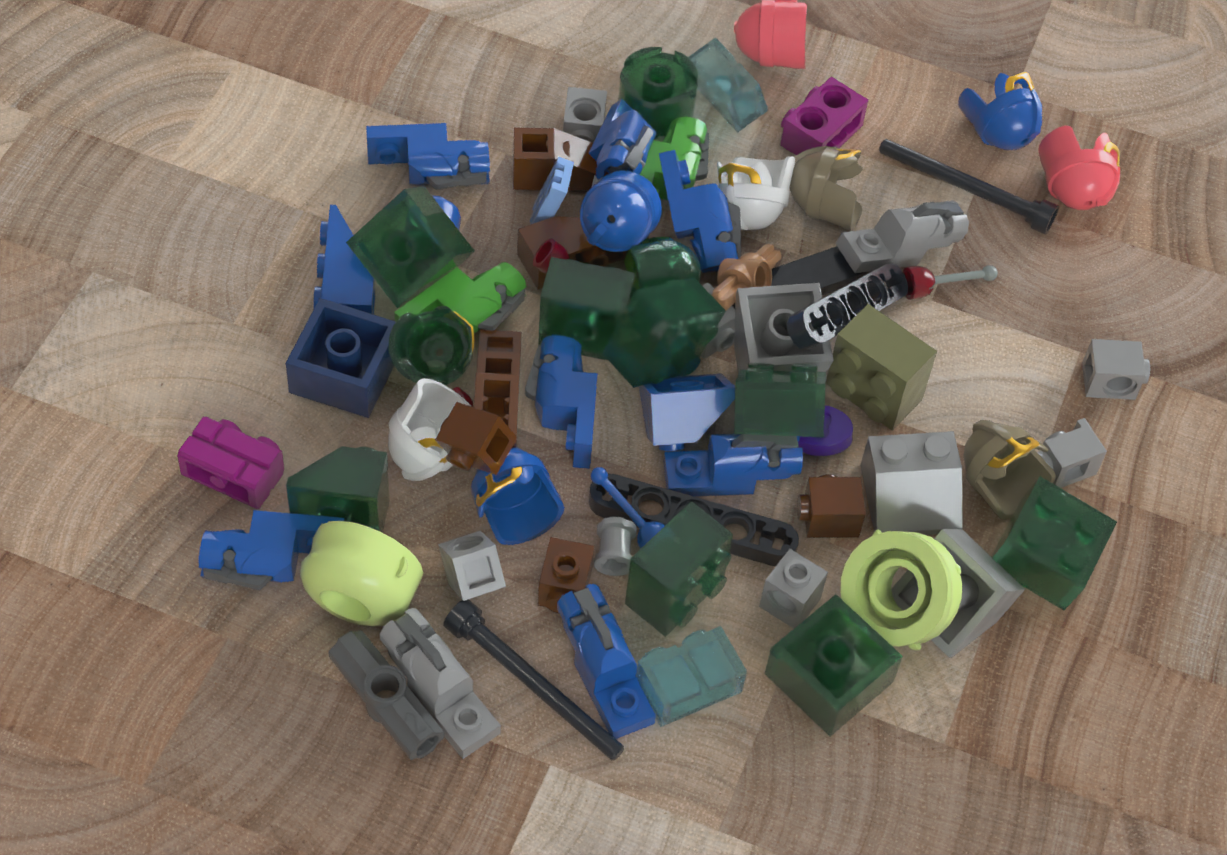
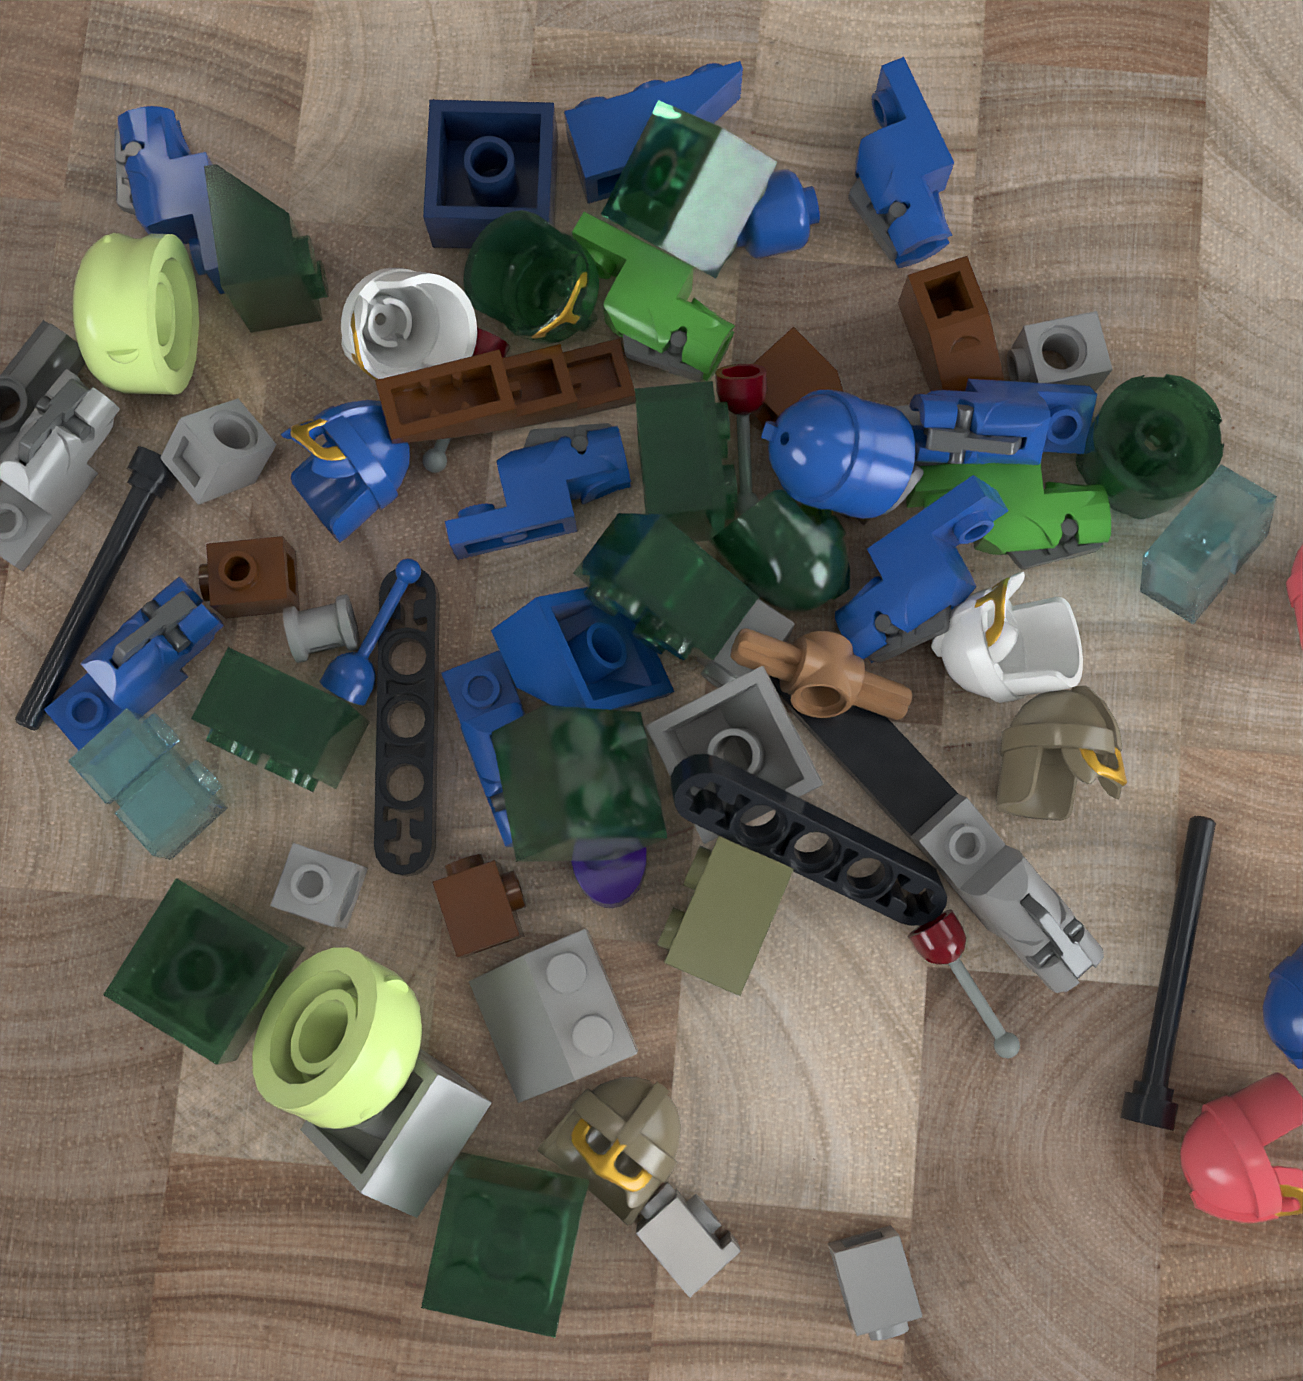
camera: 80 degrees right, 25 degrees up
(231, 461) = (295, 102): magenta brick -> none
(475, 439) = (350, 379): reddish brown brick -> none
(553, 191) = (869, 352): light blue tile -> none
(824, 119) = (1201, 730): magenta brick -> none

